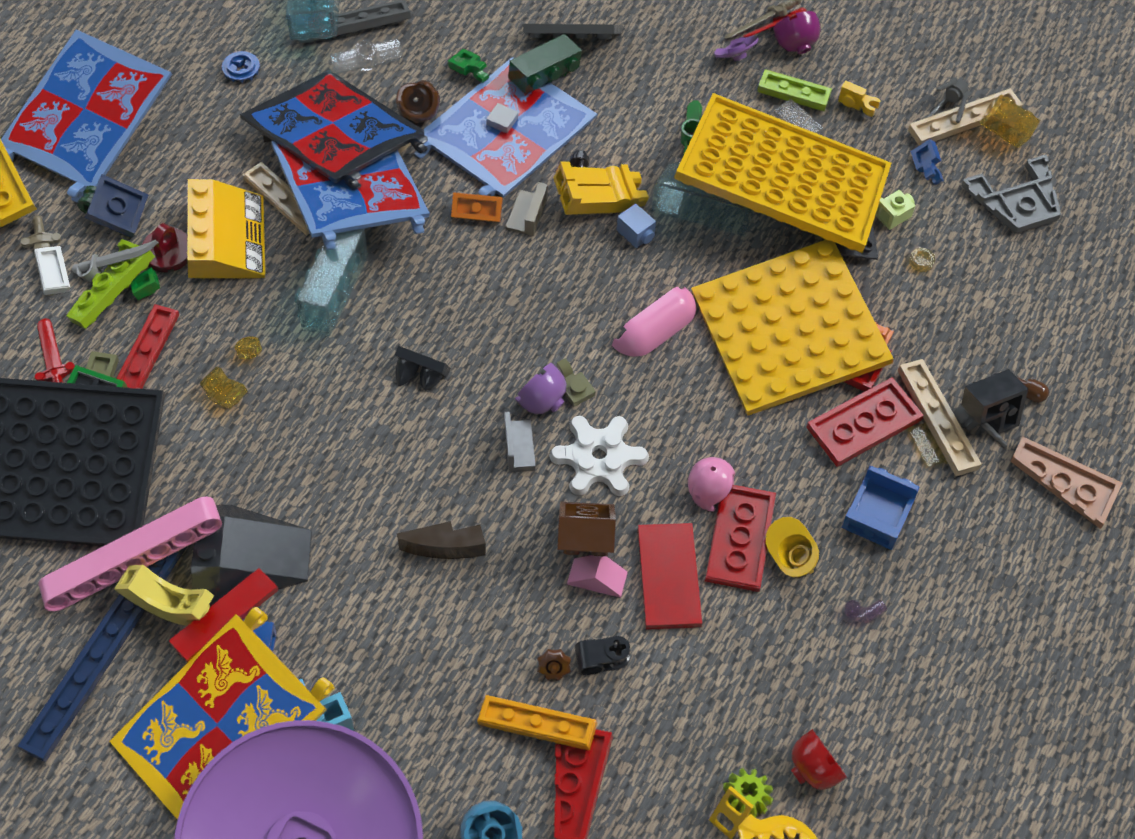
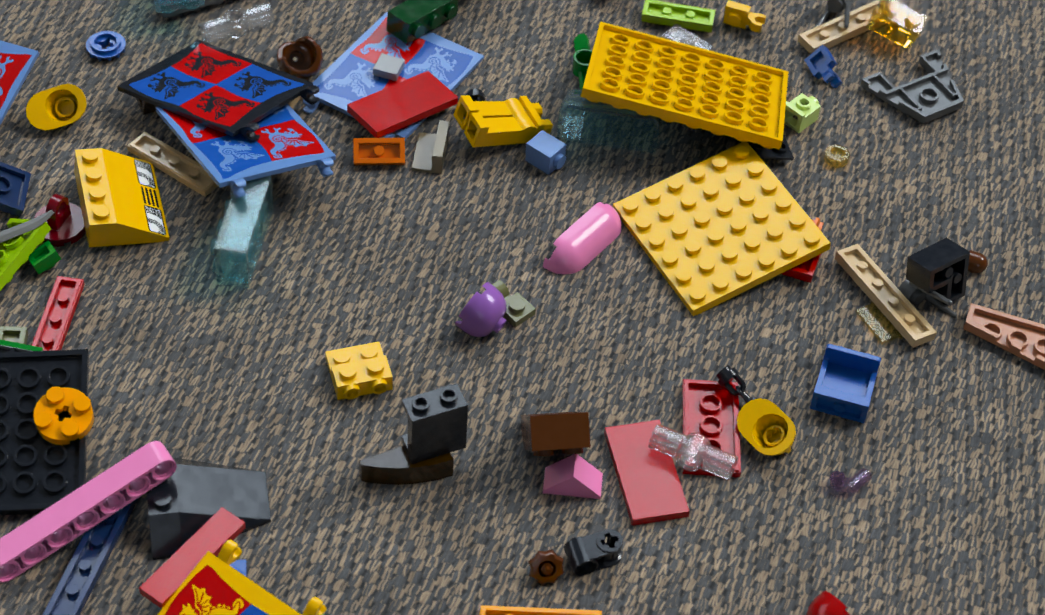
camera: 10 degrees left, 10 degrees down
(125, 440) = (57, 401): none -> light orange plate
(162, 597) = (124, 551): light yellow arch -> none
(181, 129) = (56, 107): none -> yellow piece
(222, 389) = (146, 349): clear yellow bracket -> none
(248, 347) = (165, 306): clear yellow tile -> none
(409, 363) = (338, 301): black tile -> none
(416, 436) = (359, 370): none -> yellow plate
(467, 62) = (343, 19): green plate -> none
(469, 510) = (435, 423): none -> black panel
(507, 160) = (402, 104): none -> red tile
(519, 444) = (466, 366): flat silver panel -> none
(605, 470) = (545, 382): white plate -> none
(710, 482) = (670, 378): bright pink piece -> none
(716, 564) = (693, 452): none -> clear piece
(766, 486) = (727, 375): none -> black piece
(864, 421) = (812, 307): plate -> none

